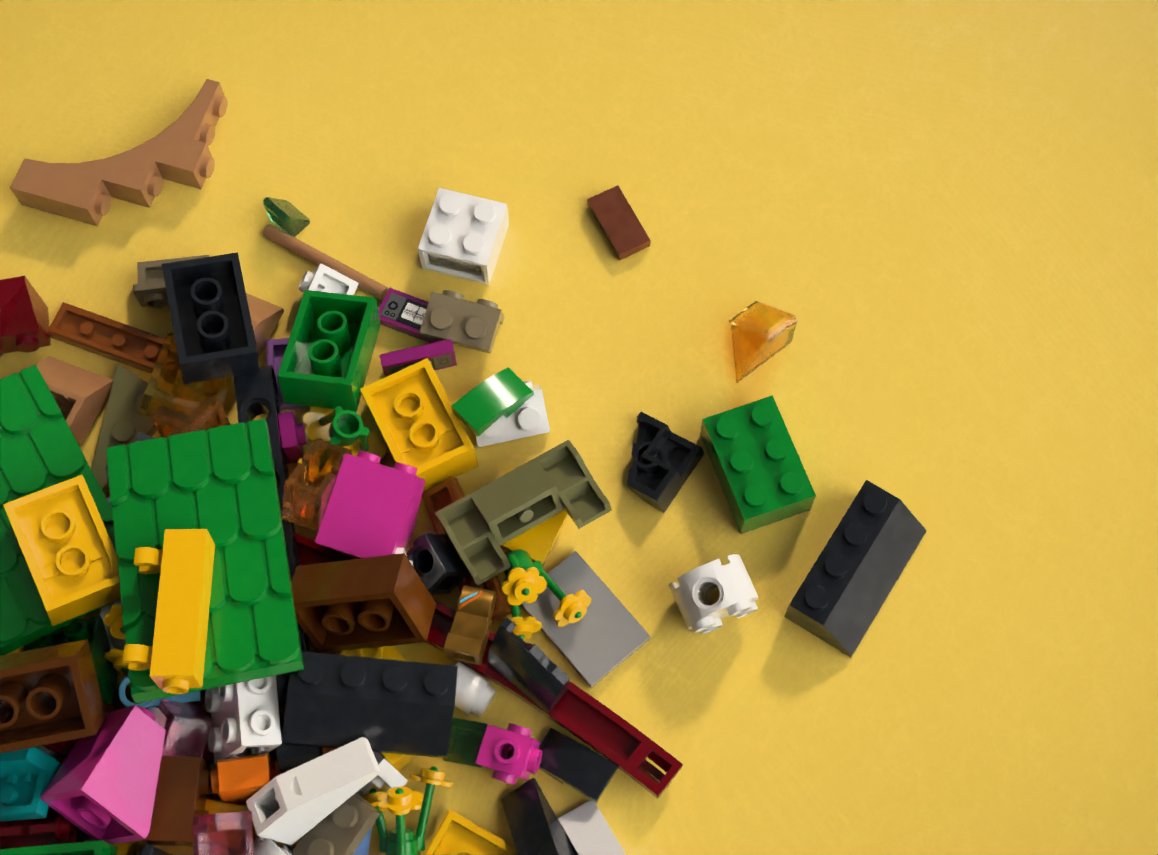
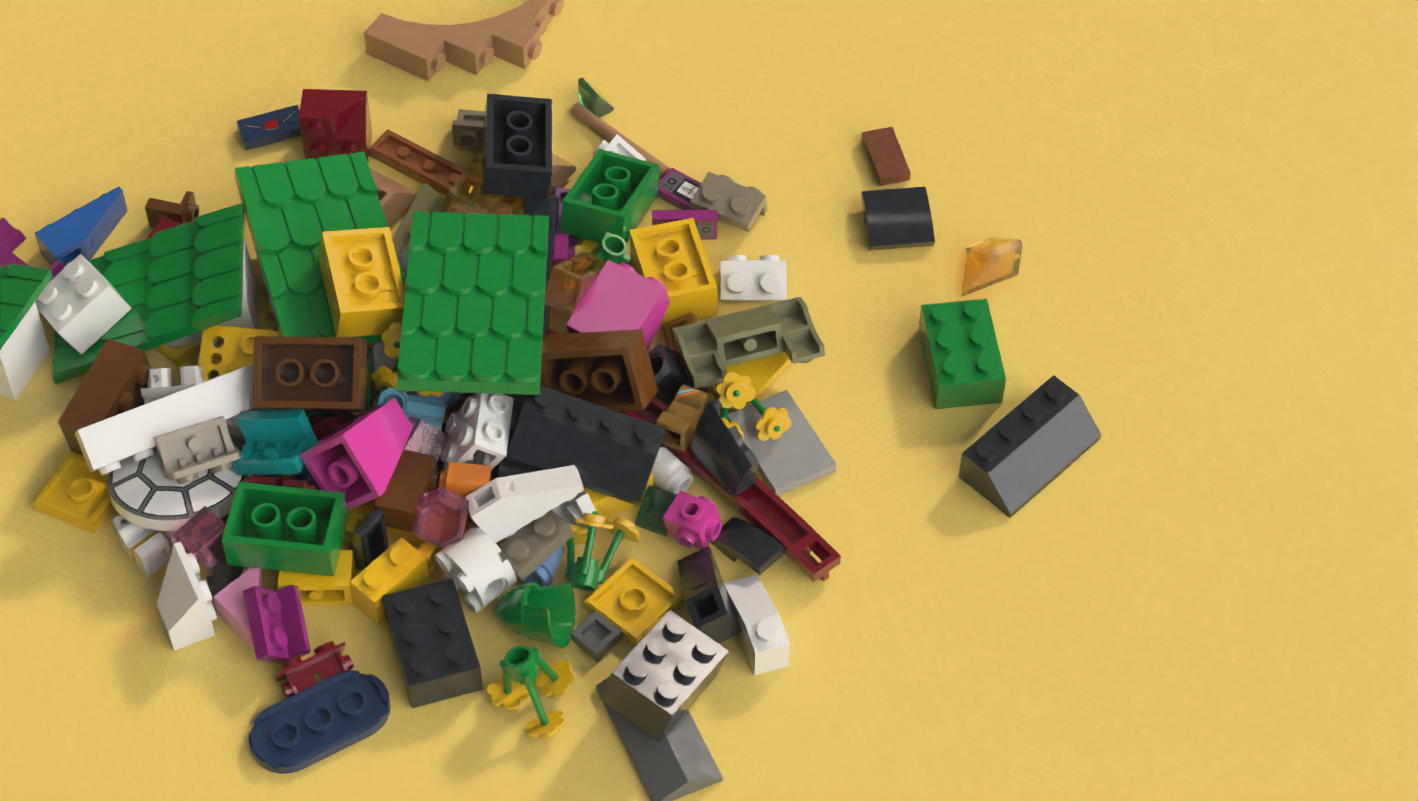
camera: 10 degrees right, 15 degrees down
(181, 612) = (453, 322): yellow brick -> none
(463, 236) = (746, 139): white piece -> none
(491, 400) = (741, 255): green slope -> none
(649, 300) = (898, 218): none -> black slope
(660, 462) = (878, 341): black slope -> none
(695, 591) = (899, 436): white brick -> none

